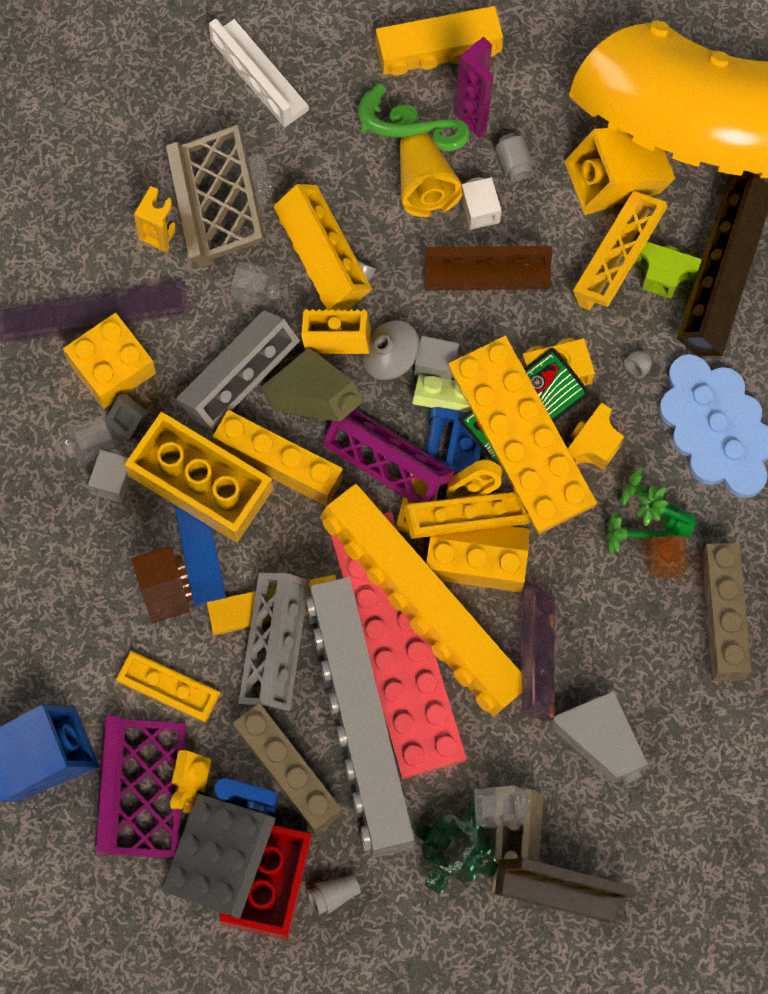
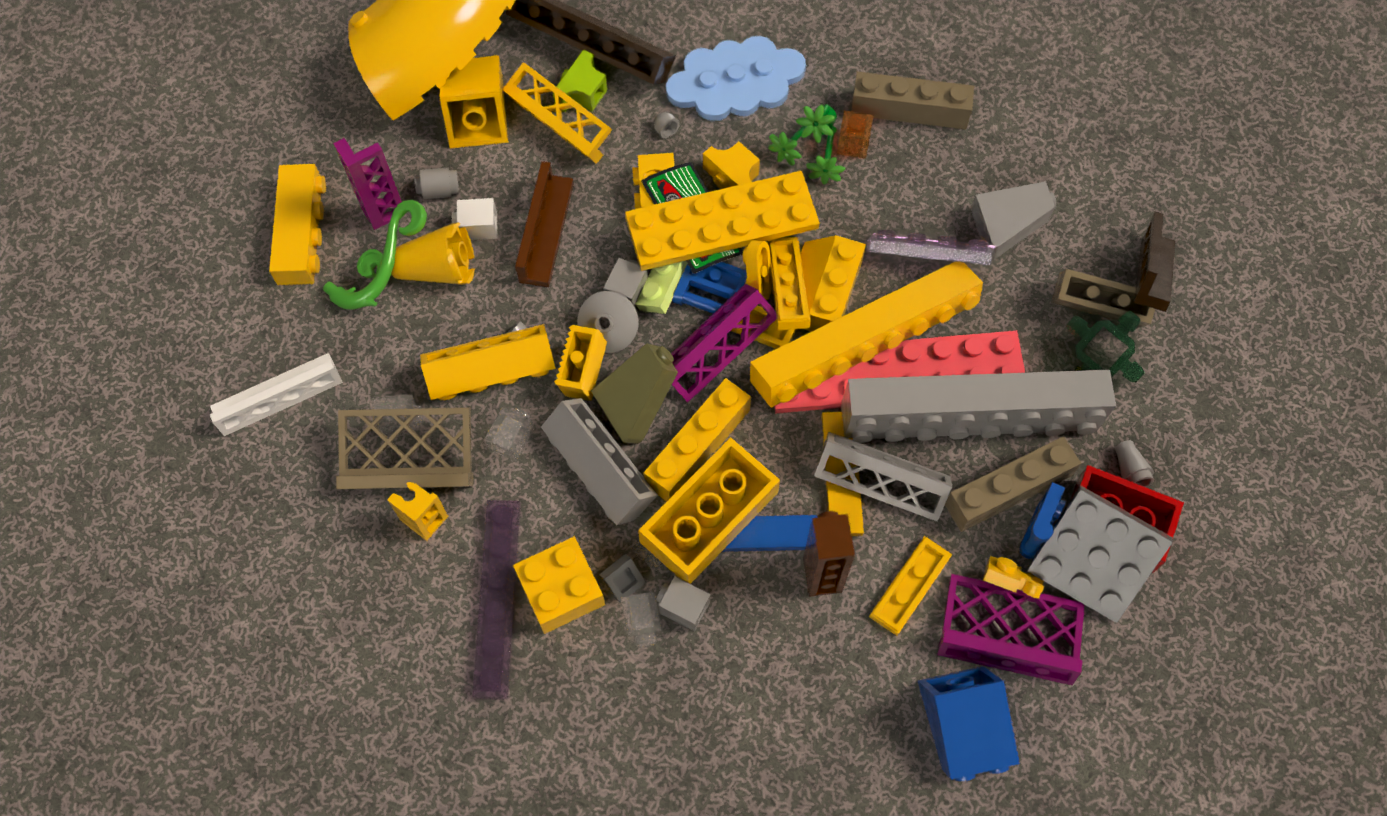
camera: 75 degrees left, 5 degrees down
(501, 806) = (1082, 293): clear brick -> none

